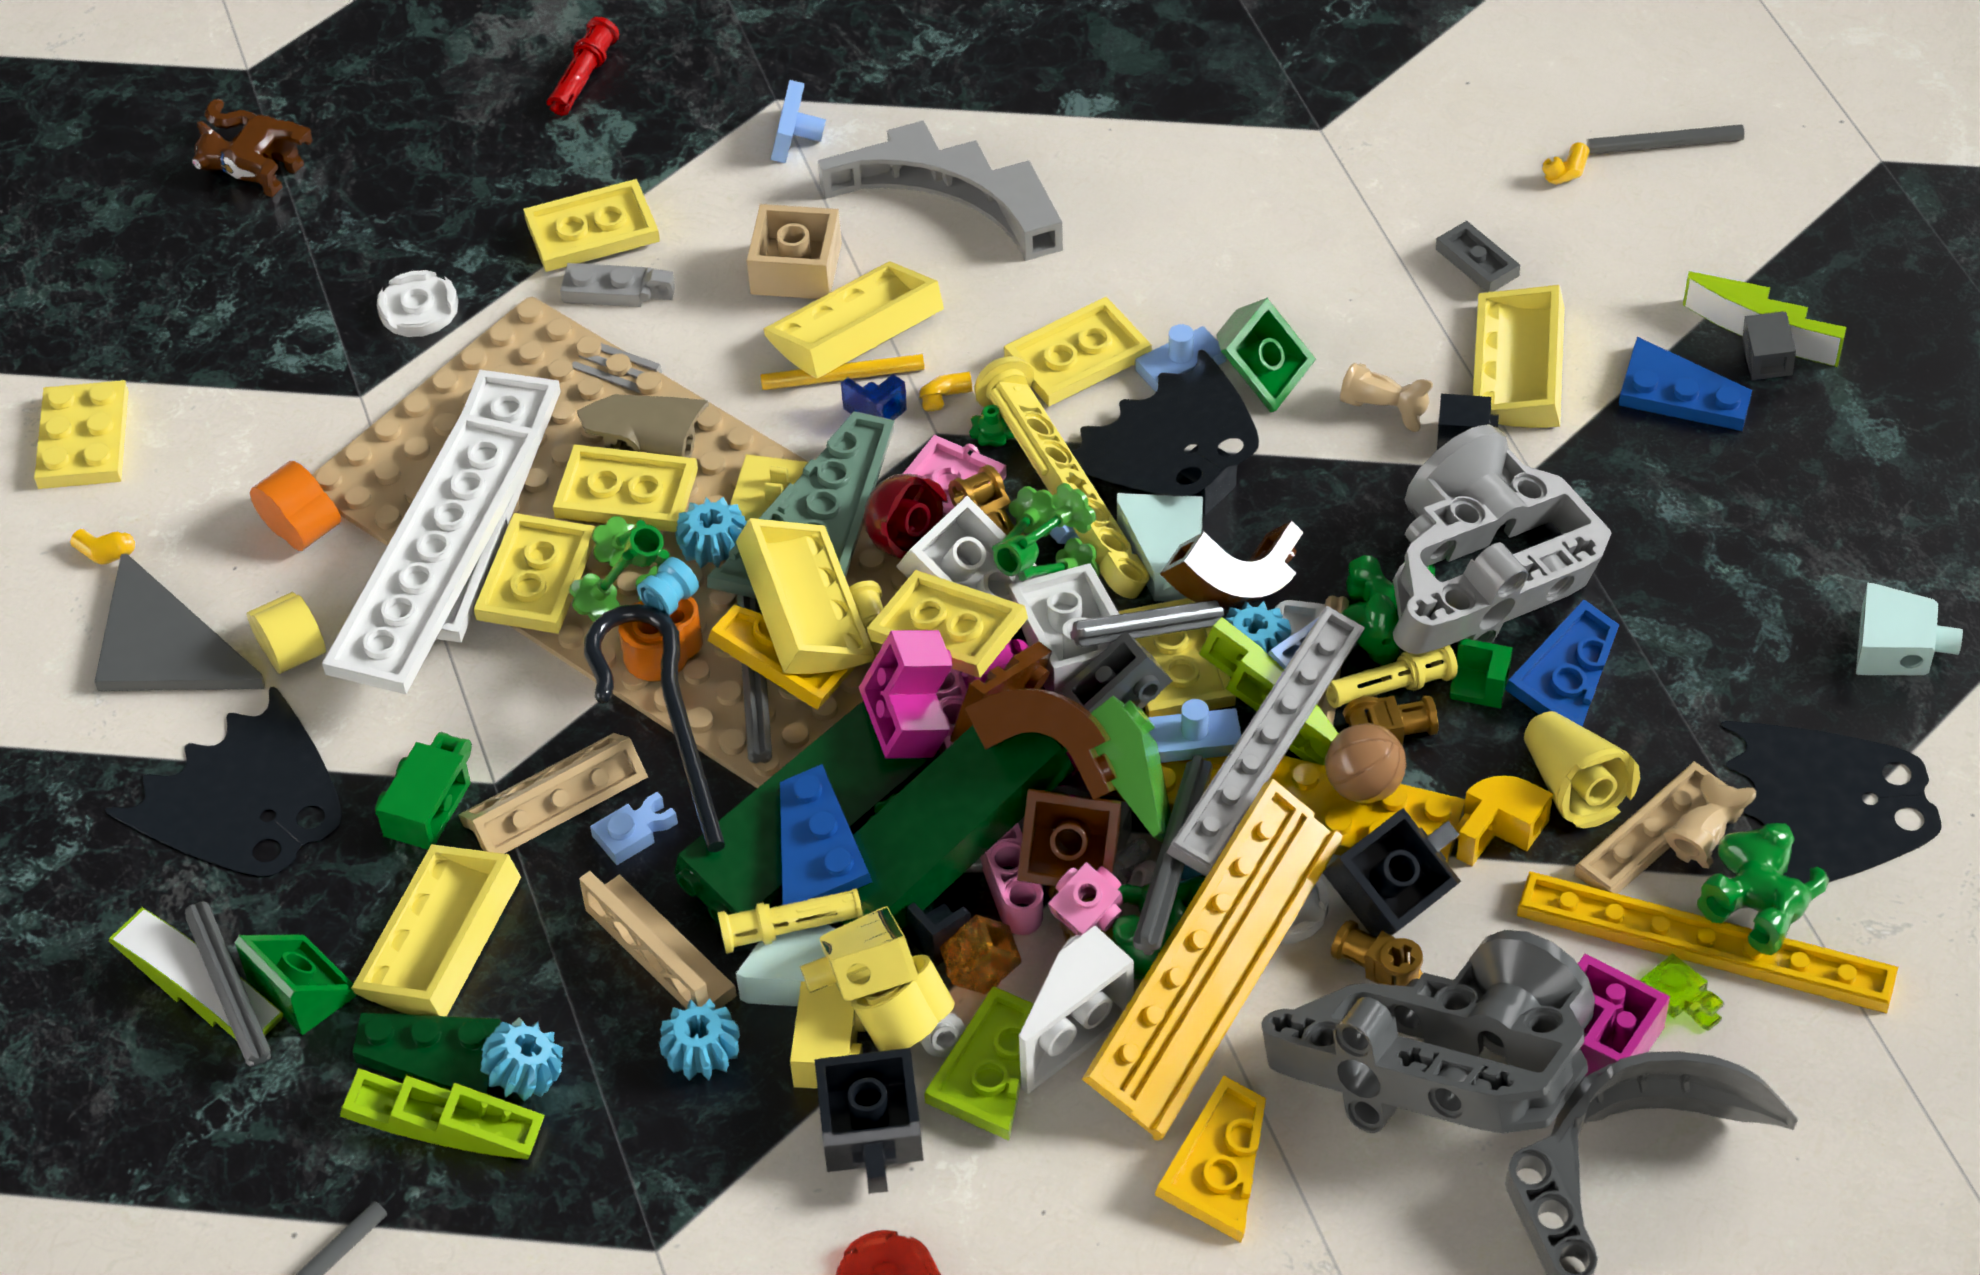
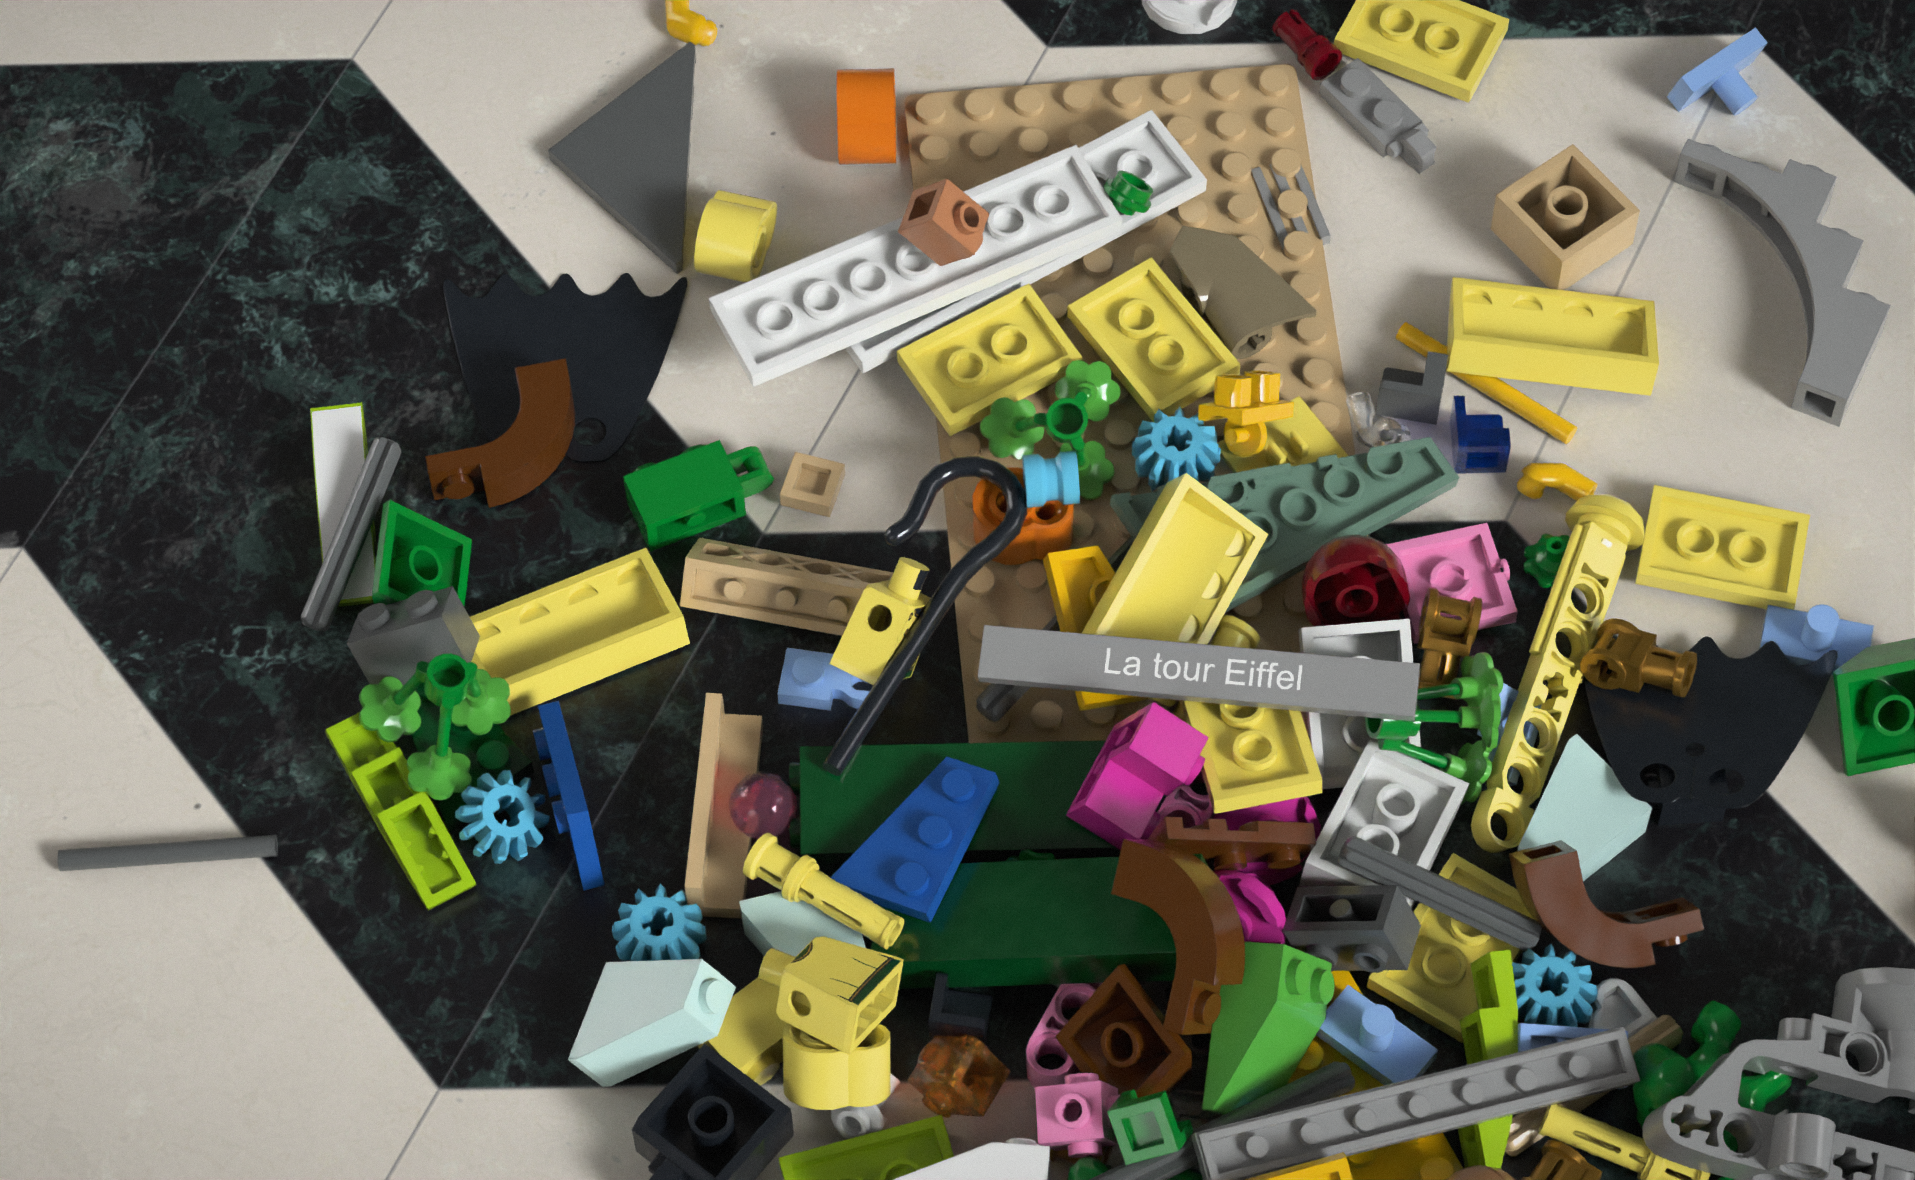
camera: 45 degrees right, 10 degrees up
(276, 823) = (524, 453): none -> reddish brown arch
(345, 1005) = (399, 635): none -> dark grey brick
(429, 1007) = (465, 698): none -> bright green plant
(438, 501) = (944, 222): none -> nougat brick
(499, 728) = (812, 484): none -> tan plate
(524, 415) = (1128, 193): none -> green plate
(536, 278) = (1312, 50): none -> dark red pin
(557, 1007) = (563, 780): none -> blue wing
(656, 768) = (882, 622): none -> light yellow torso
(685, 914) = (762, 804): none -> clear pink piece
(733, 474) = (1247, 405): none -> yellow hips
(756, 1078) = (648, 1015): none -> light aqua slope
(804, 443) = (1371, 428): none -> clear arm
(813, 406) = (1411, 393): none -> dark grey panel
(882, 610) = (1199, 672): none -> light grey tile
(1104, 433) = (1636, 660): none -> pearl gold connector
(1140, 864) = (1146, 1126): none -> green panel

